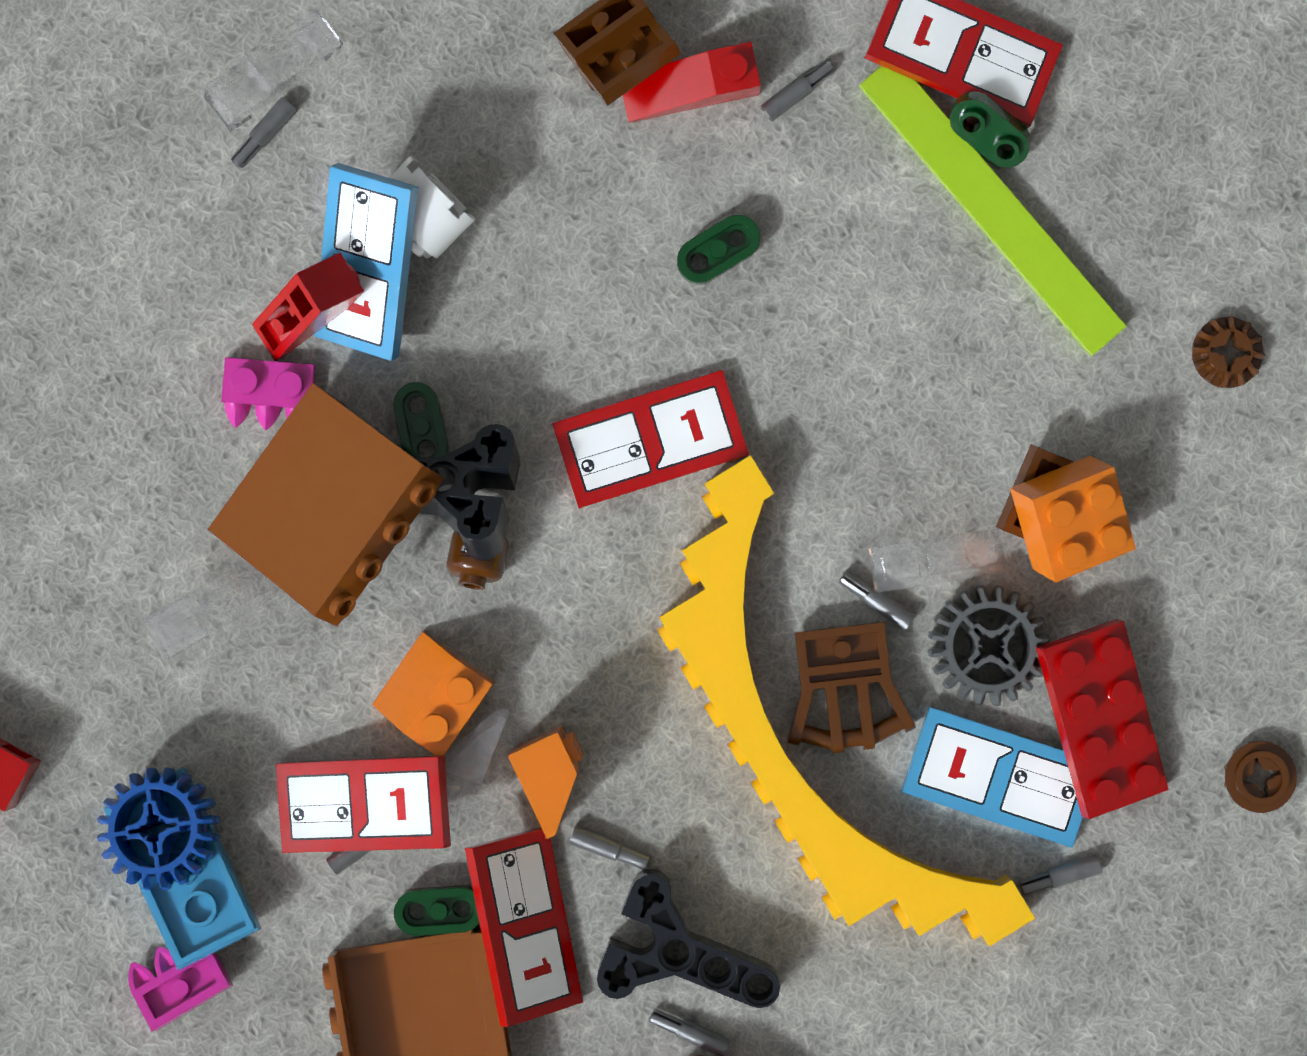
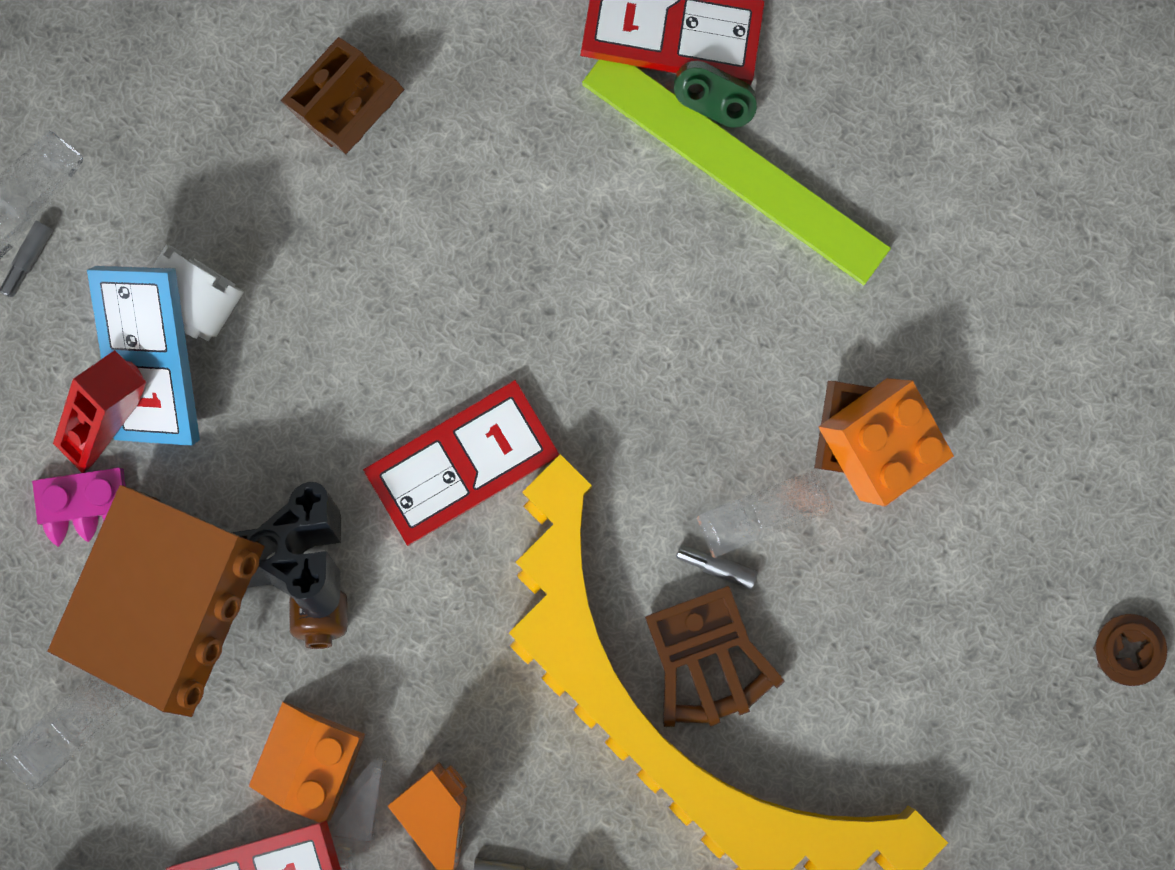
camera: 10 degrees left, 5 degrees down
(420, 427) = (236, 504): dark green plate -> none
(695, 83) = (426, 115): red slope -> none
(717, 249) = (484, 267): dark green plate -> none
(797, 90) = (524, 101): flat silver pin -> none
(972, 660) = (855, 552): dark grey gear -> none
(994, 777) = (879, 710): tile -> none
(1062, 875) = (964, 792): flat silver pin -> none
(1102, 718) = (963, 629): red plate -> none
(1213, 366) = (982, 266): reddish brown gear -> none

